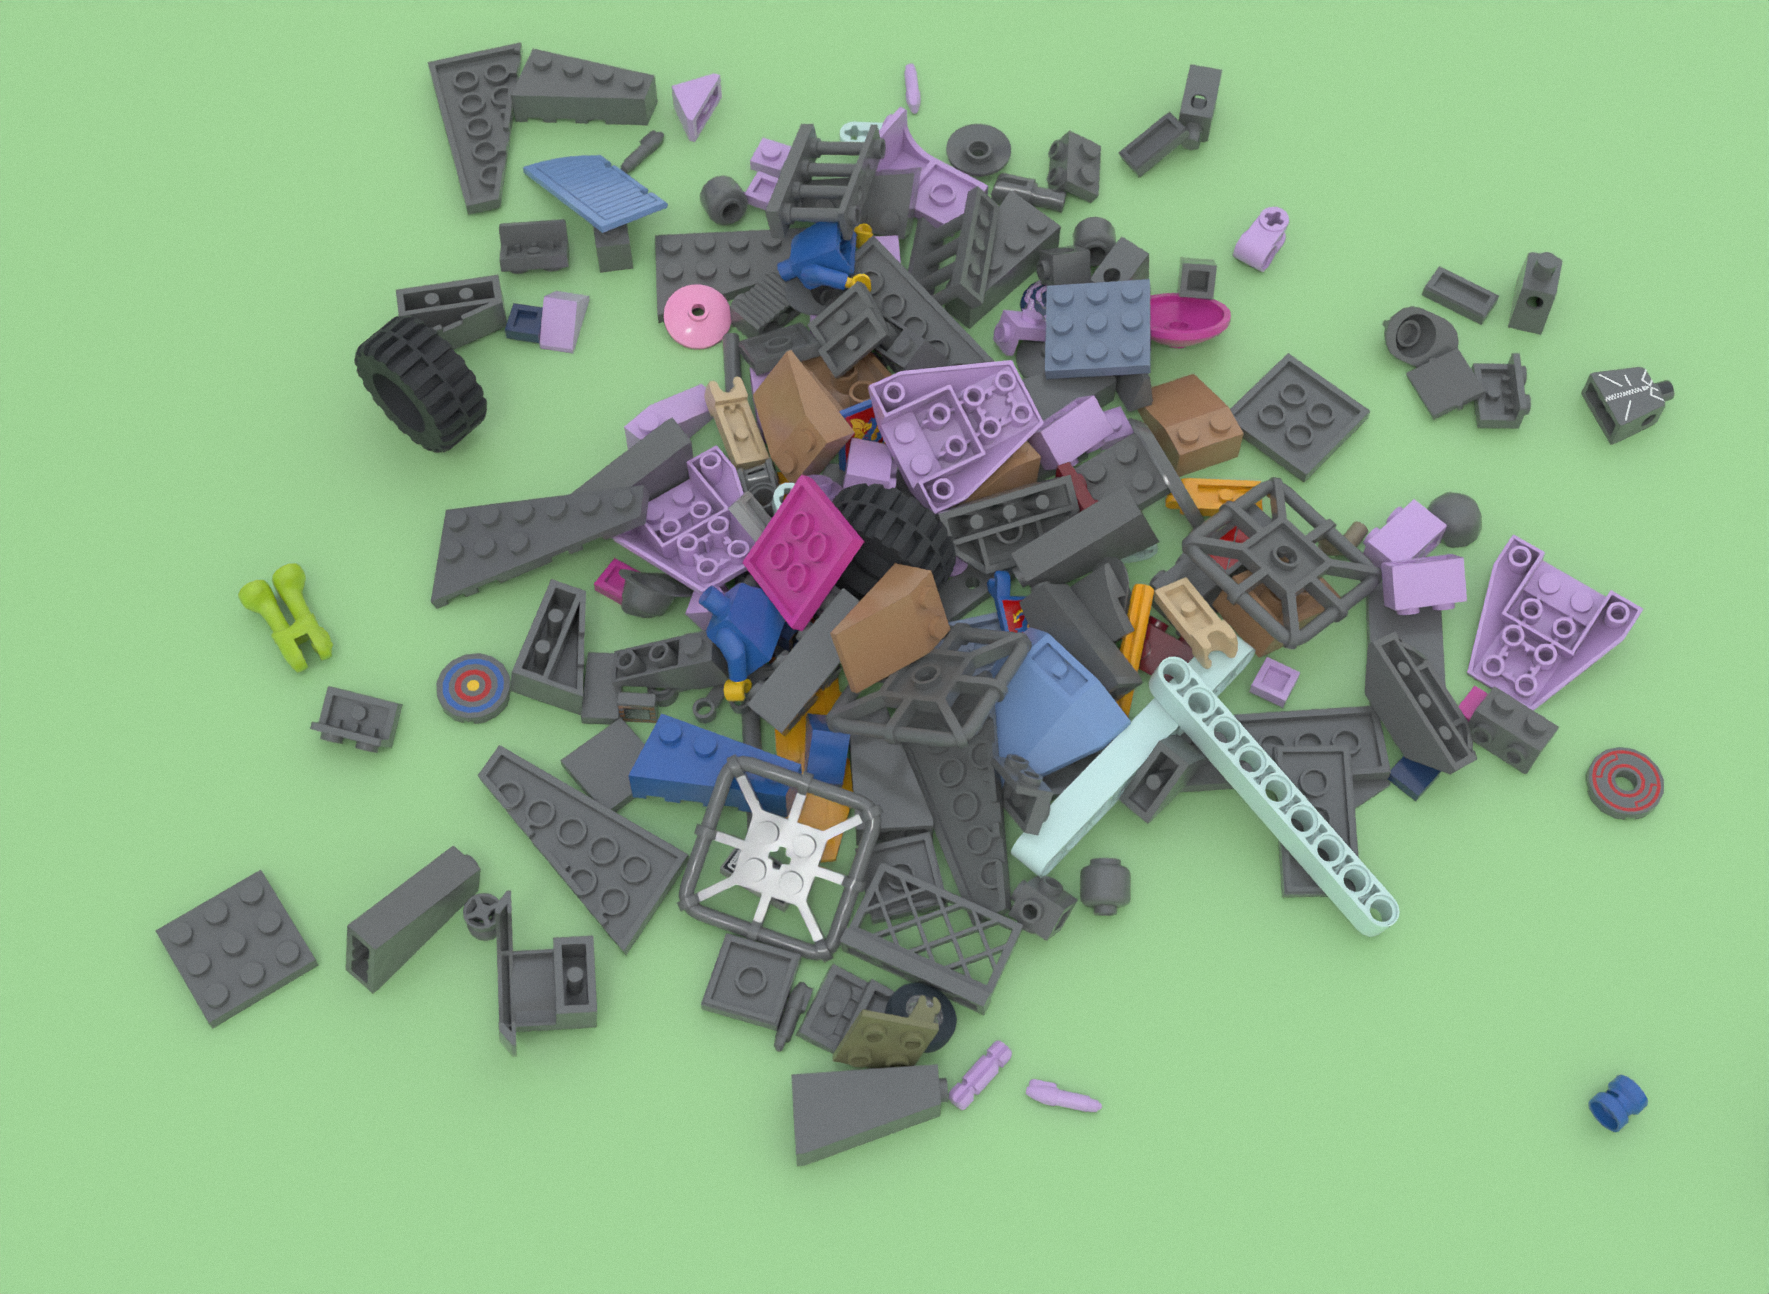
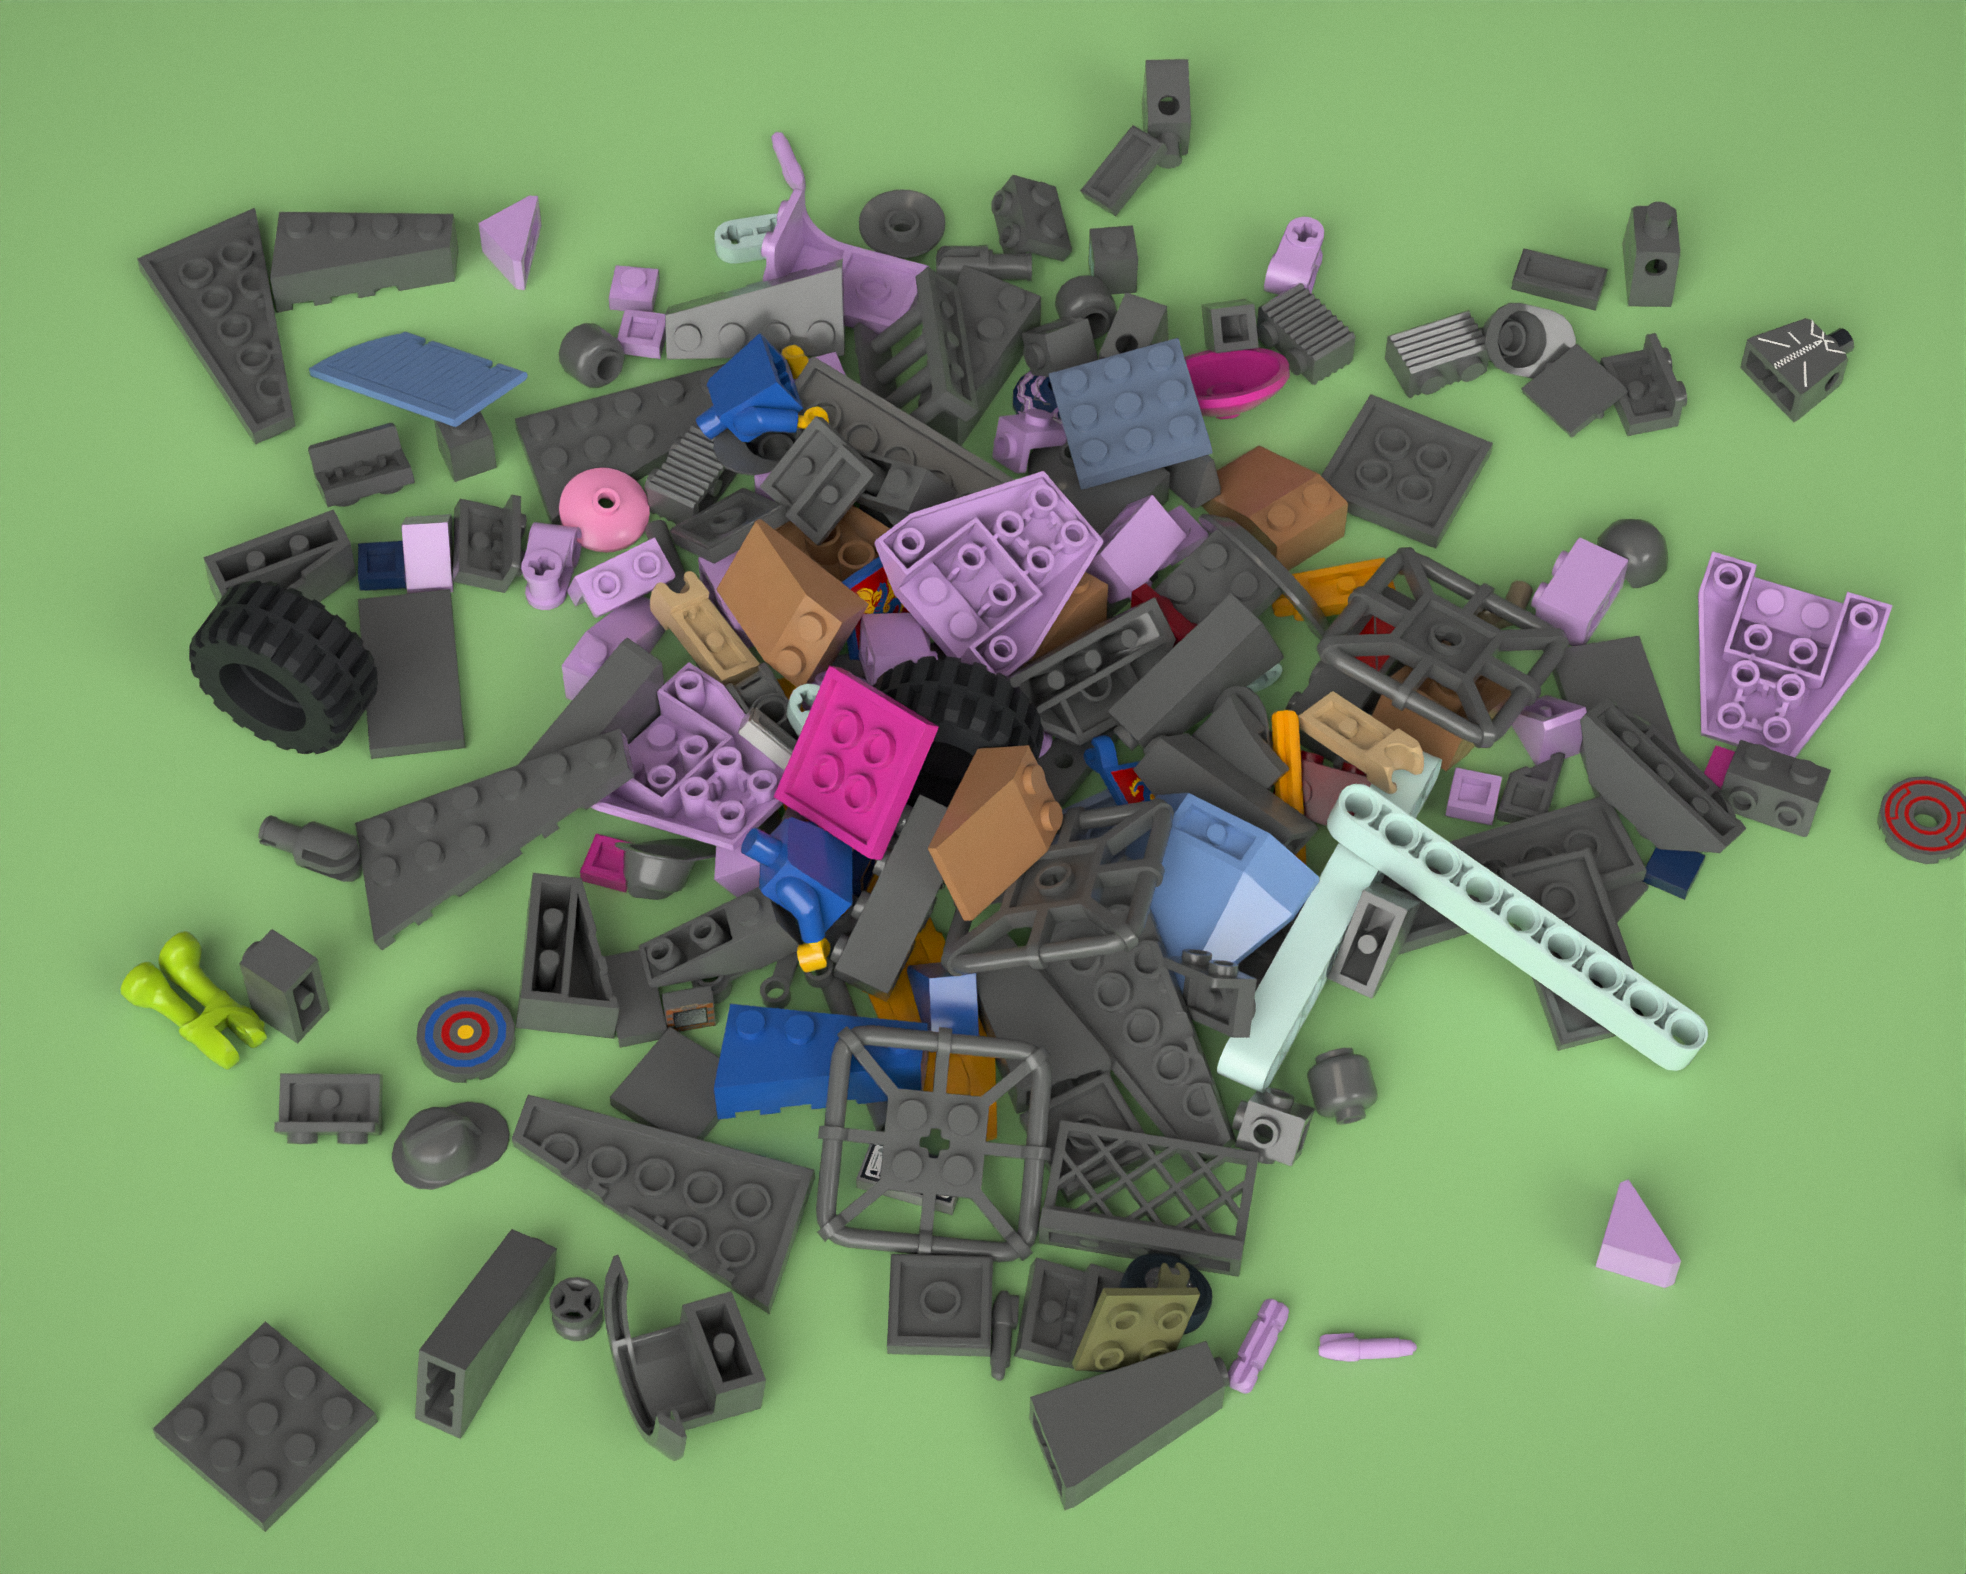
camera: 15 degrees left, 5 degrees down
(351, 620) = (284, 985): none -> dark grey brick
(411, 521) = (315, 847): none -> dark grey arm
(436, 767) = (449, 1144): none -> dark grey piece
(522, 408) = (417, 674): none -> dark grey tile
(605, 323) = (488, 543): none -> dark grey bracket
(645, 348) = (550, 563): none -> lavender piece
(646, 148) = (465, 308): dark grey piece -> none
(691, 371) = (621, 578): none -> lavender bracket
(801, 167) = (692, 292): dark grey fence -> none
(1126, 209) = (1114, 258): none -> dark grey brick
(1252, 296) = (1305, 334): none -> dark grey brick
(1294, 1067) = (1636, 1243): none -> lavender slope
(1320, 687) = (1530, 790): none -> dark grey tile
(1348, 333) = (1437, 354): none -> dark grey brick
(1348, 643) = (1550, 728): none -> lavender slope
(1423, 583) = (1621, 634): lavender brick -> none

